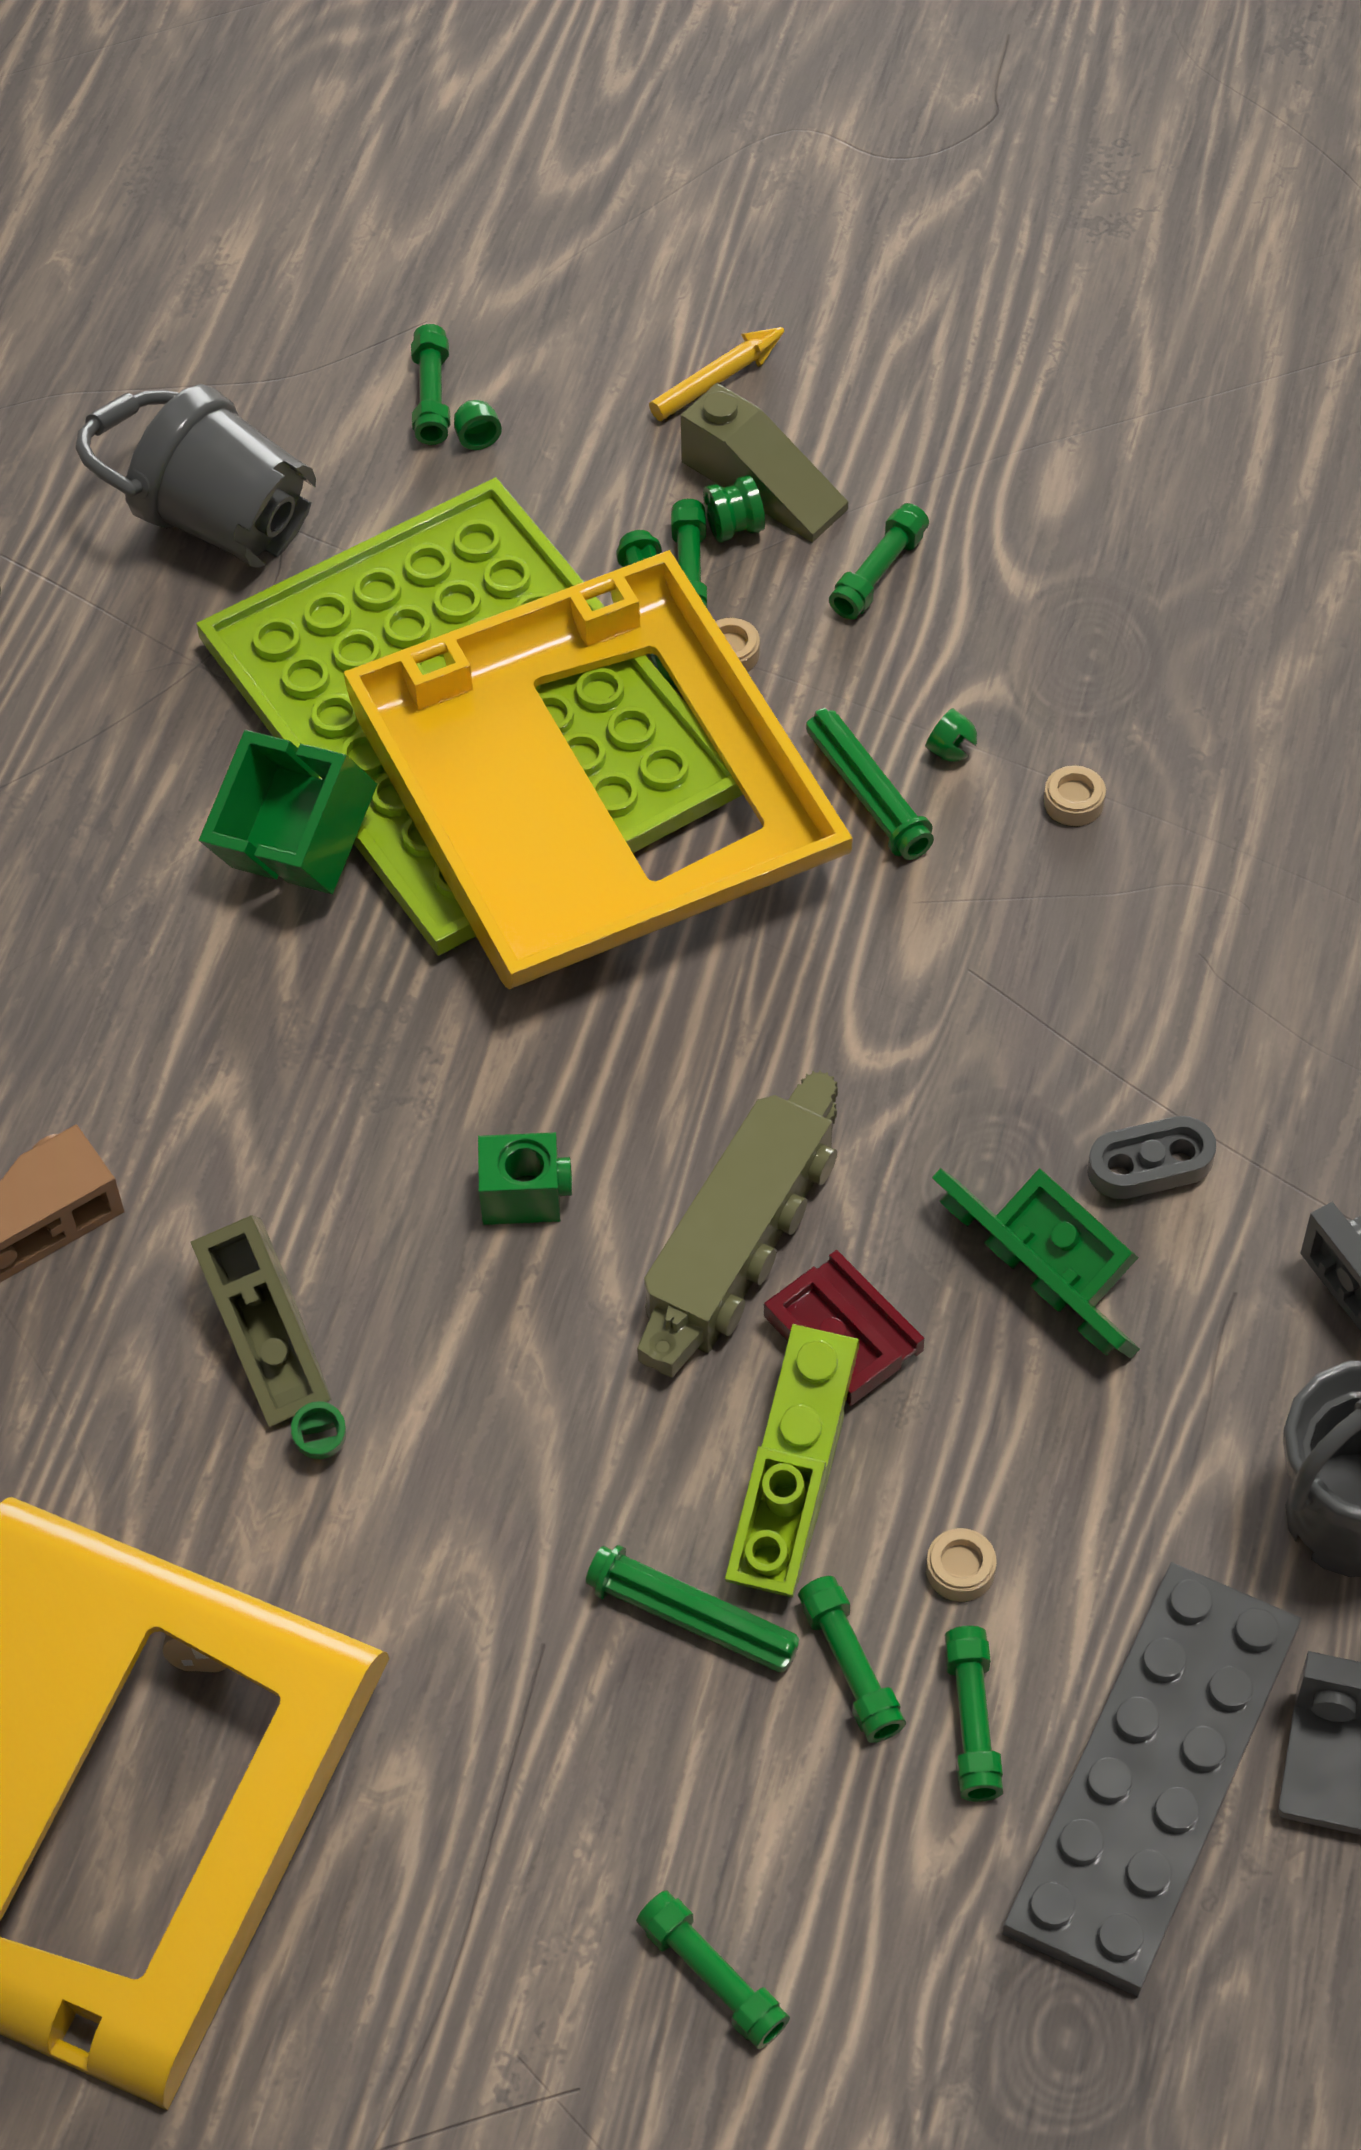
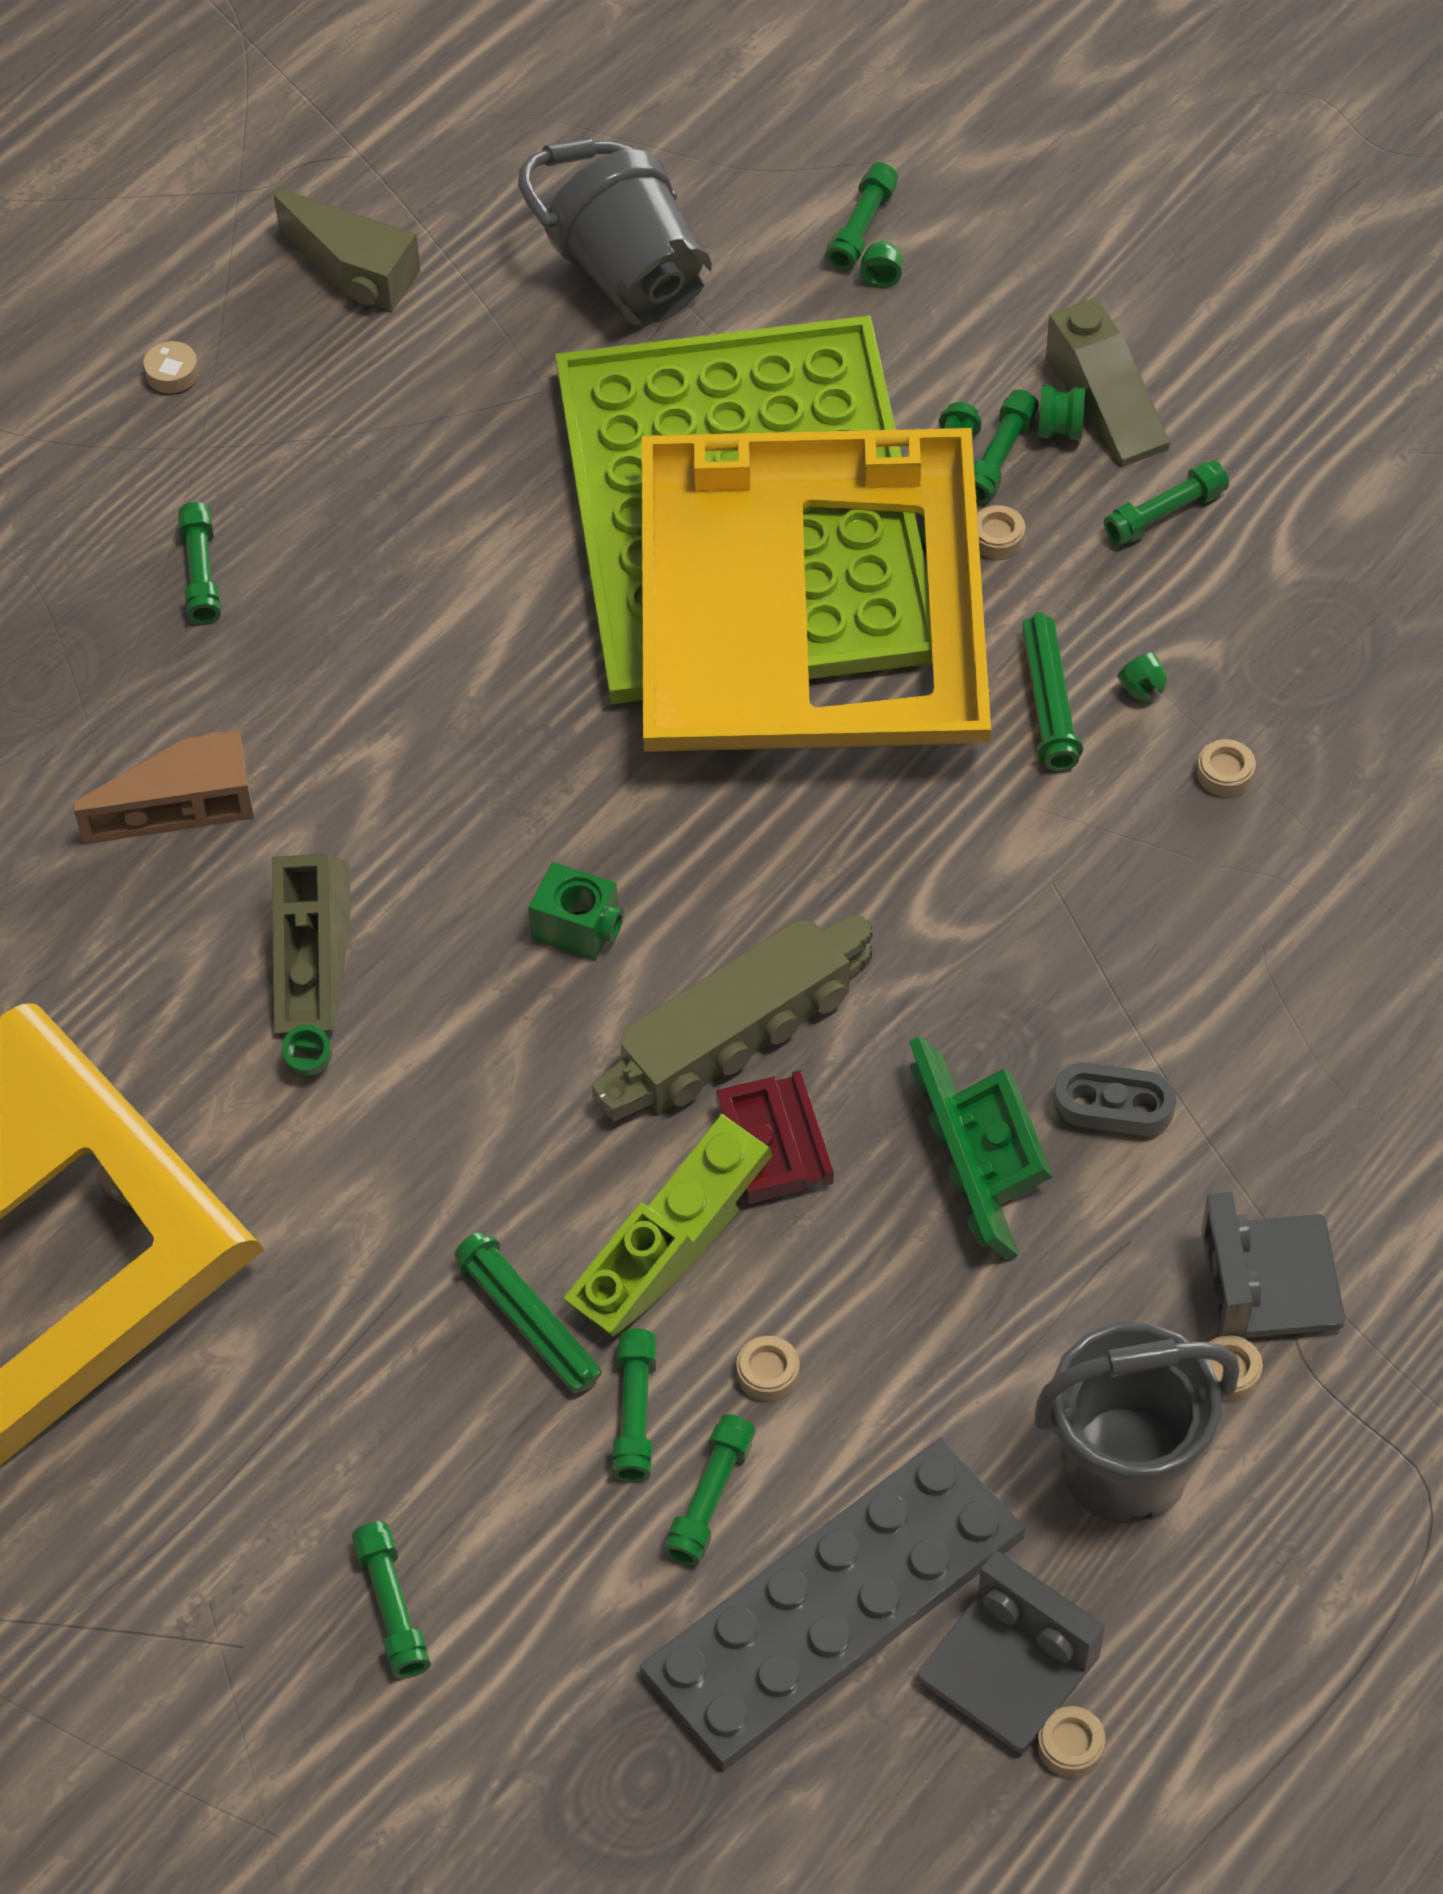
camera: 25 degrees right, 0 degrees up
(285, 819) = (539, 537): green piece -> none
(755, 348) = (1161, 278): yellow piece -> none

